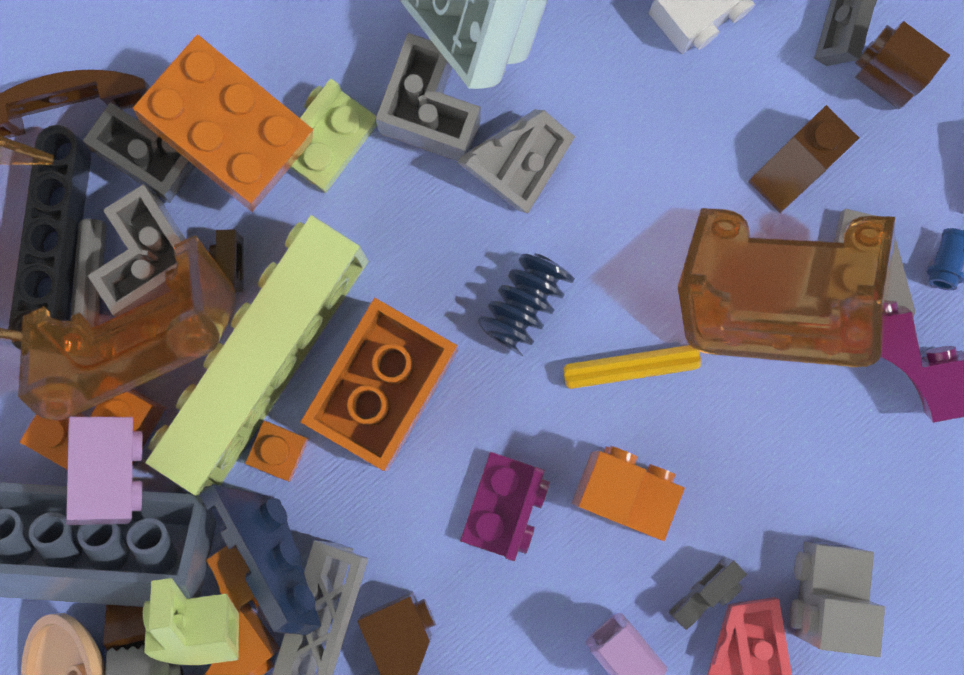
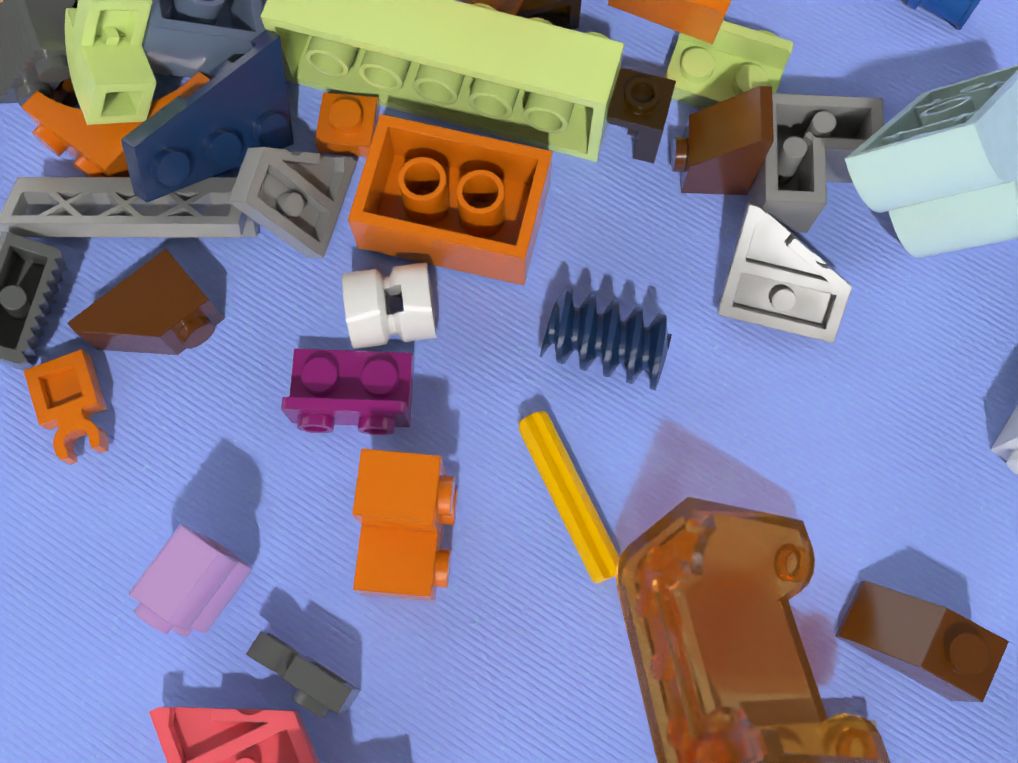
camera: 75 degrees right, 10 degrees down
(337, 507) = (293, 195): none -> light grey wing
(350, 213) = (642, 106): none -> dark brown bracket
(400, 162) = (725, 144): none -> reddish brown slope
(445, 474) = (369, 309): none -> white wheel

